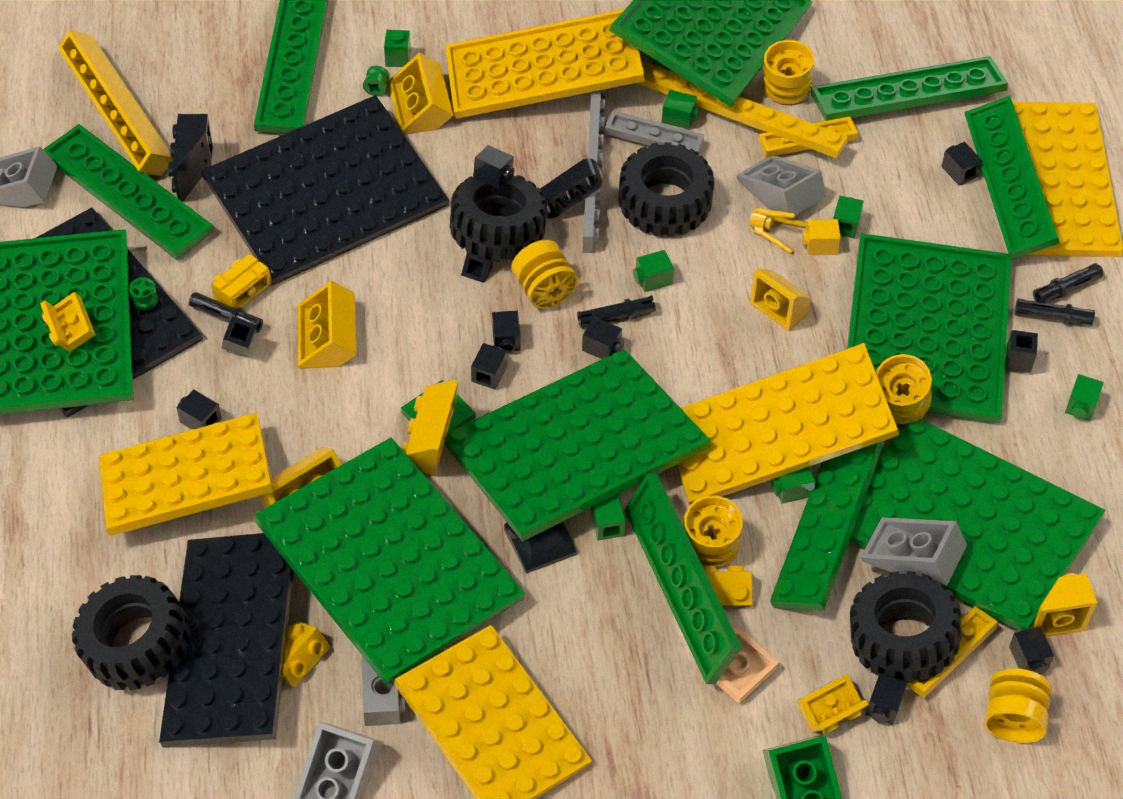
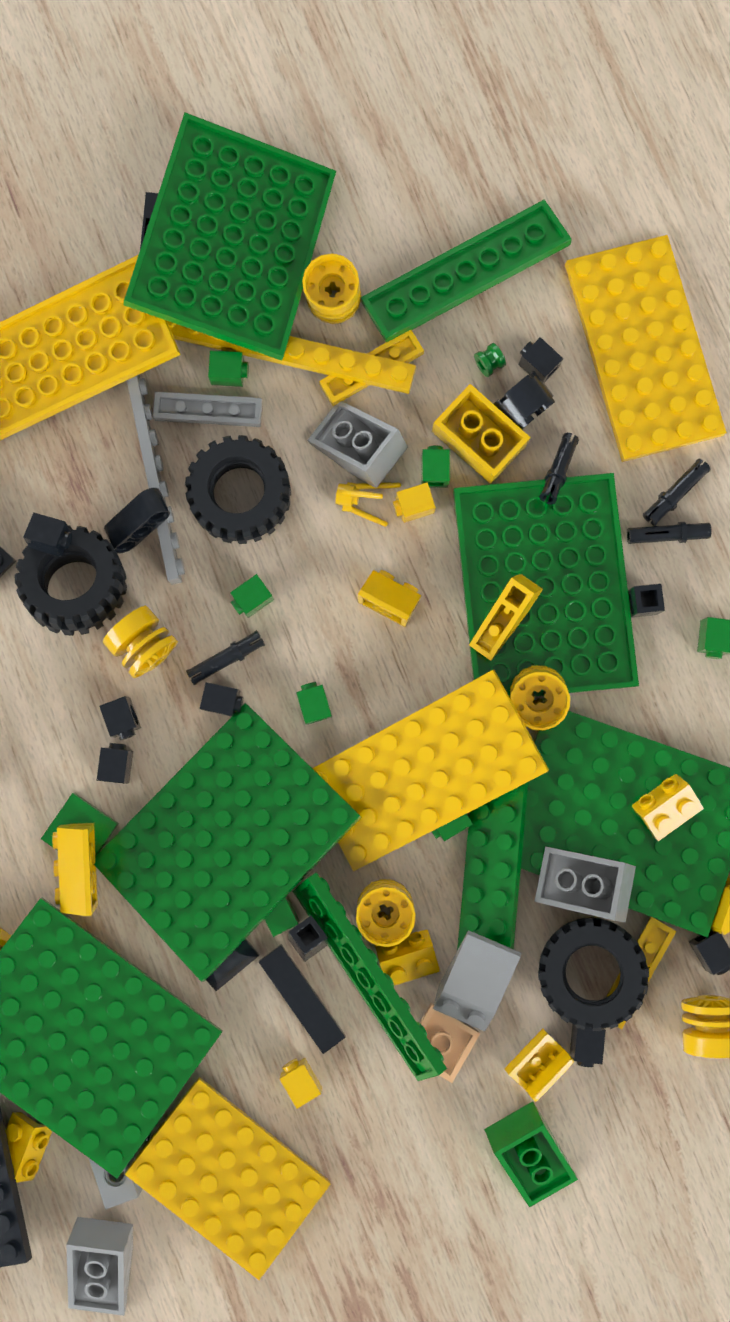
camera: 15 degrees left, 30 degrees up
(476, 267) = (68, 643): black slope -> none
(587, 662) = (300, 1082): none -> yellow brick
(609, 597) = (302, 999): none -> black tile
(630, 538) = (307, 938): none -> black brick
(688, 363) = (313, 703): none -> green brick
(788, 603) = (476, 980): none -> light grey slope
(889, 324) = (505, 615): none -> yellow slope
(894, 198) = (480, 433): none -> yellow brick
(916, 152) = (490, 359): none -> green wheel
(939, 183) = (524, 399): none -> black brick
(957, 239) = (556, 476): none -> black pin
(1009, 507) = (667, 806): none -> yellow bracket
(1011, 178) = (596, 371): green plate -> none

